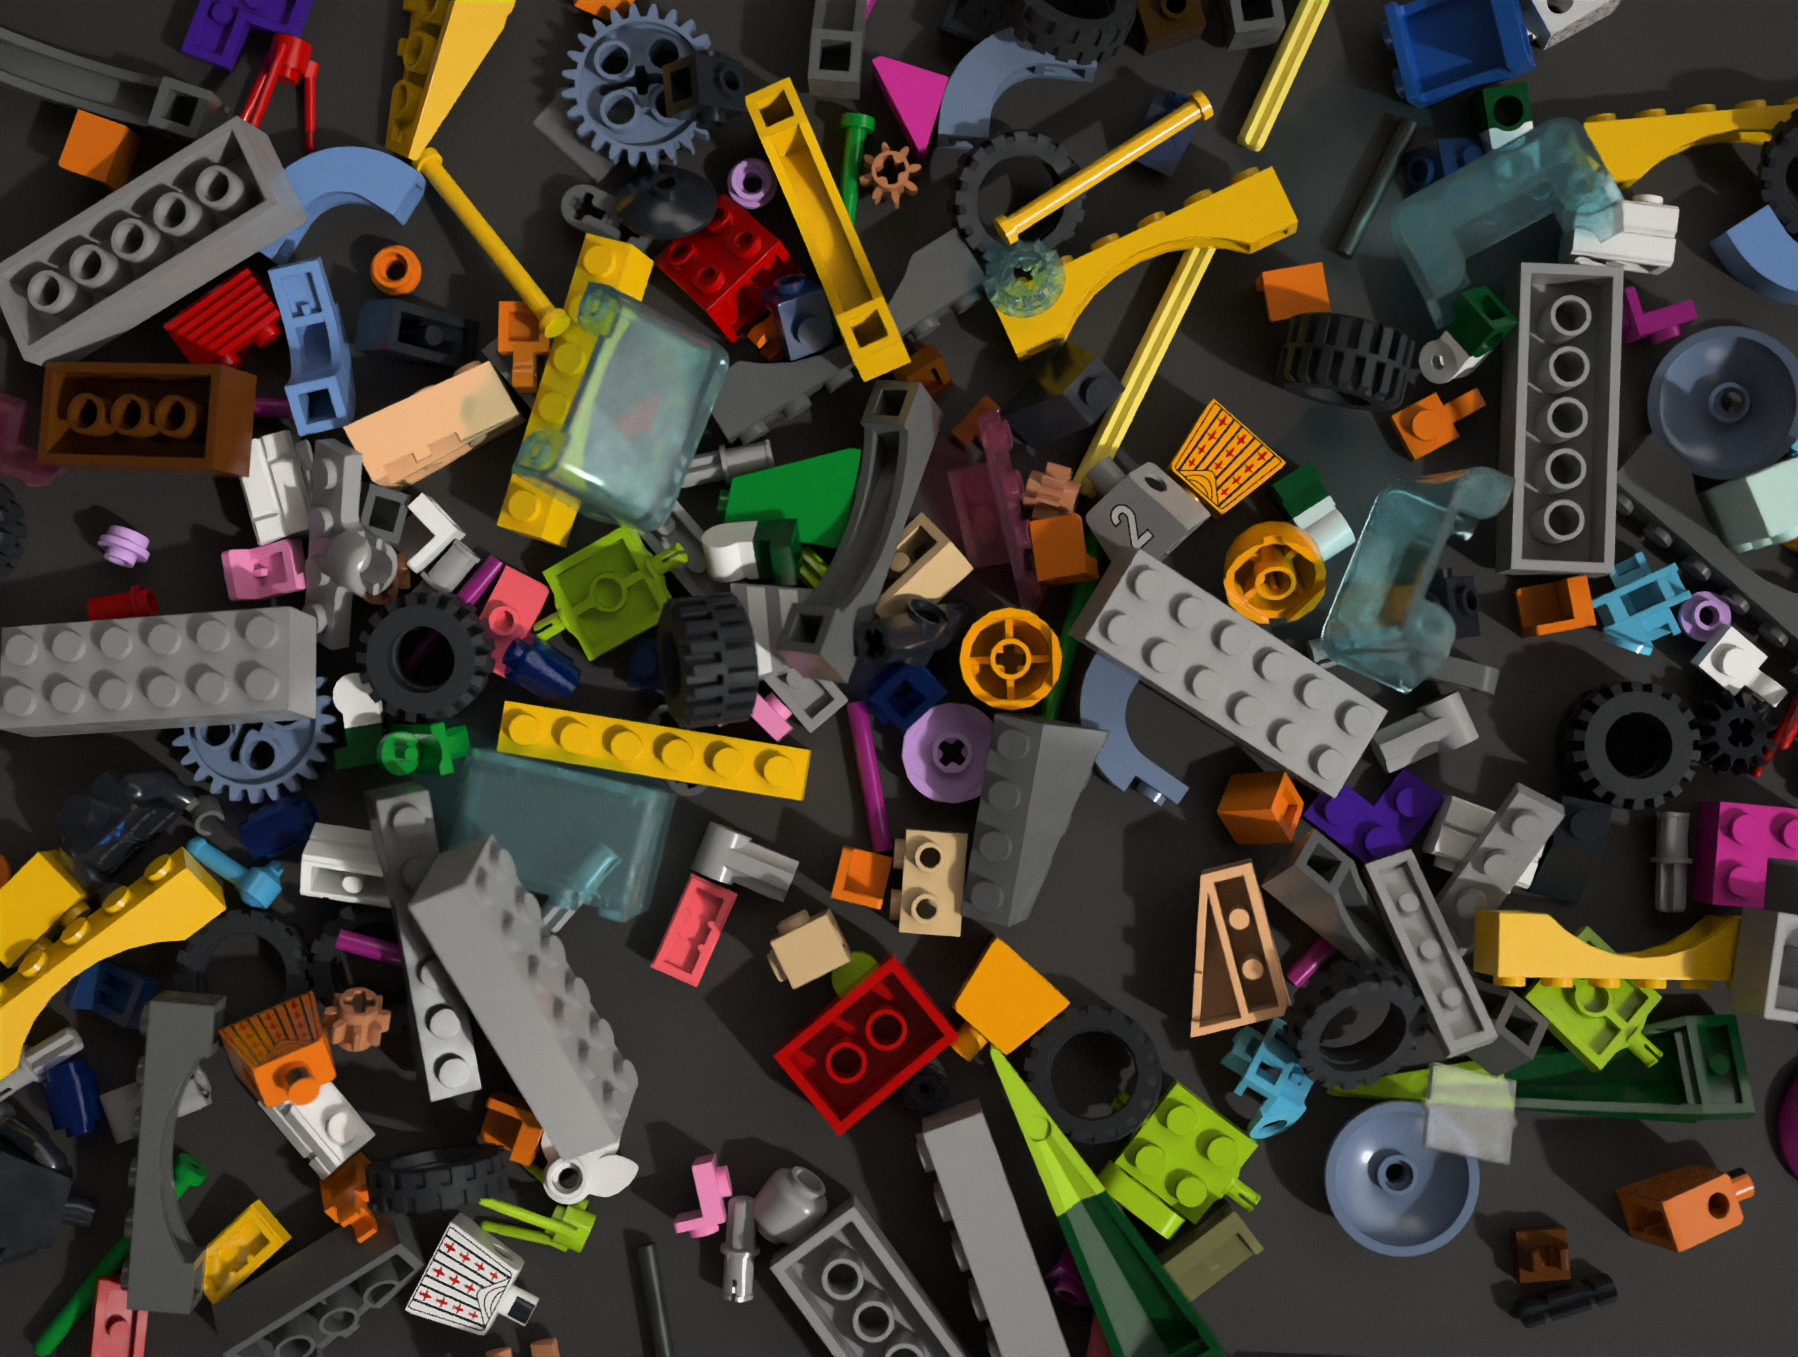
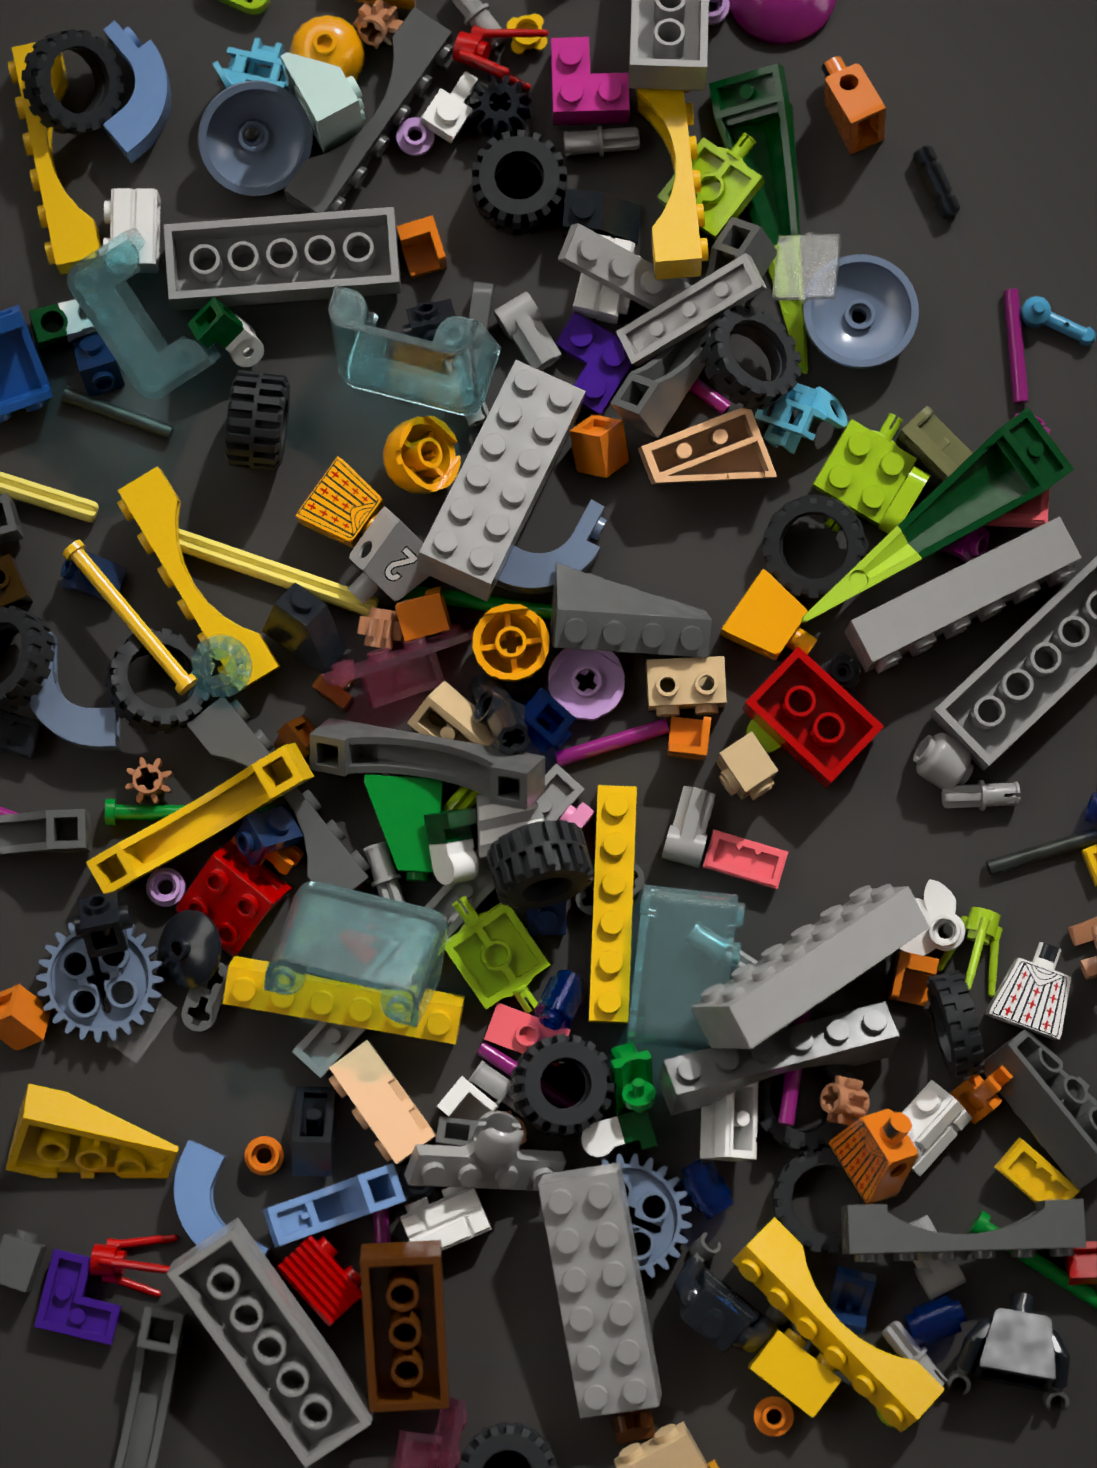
camera: 95 degrees left, 5 degrees down
(100, 150) = (196, 1399): orange panel -> none
(124, 546) = (505, 1338): lavender plate -> none
(130, 604) = (552, 1334): red pin -> none
(255, 886) = (755, 1201): dark azure piece -> none
(265, 571) = (510, 1223): bright pink bracket -> none
(523, 340) = (305, 1041): orange plate -> none
(552, 320) = (293, 1018): yellow bar -> none
(712, 1187) = (937, 820): bright pink bracket -> none
(913, 99) = (89, 769): dark pink slope -> none
(1294, 291) = (207, 464): orange panel -> none
(1309, 506) = (369, 434): leg -> none
(1430, 423) = (293, 354): orange plate -> none
(1540, 1253) = (904, 204): reddish brown tile -> none
(1634, 592) = (401, 186): medium azure piece -> none
(1659, 324) = (200, 192): magenta bracket -> none

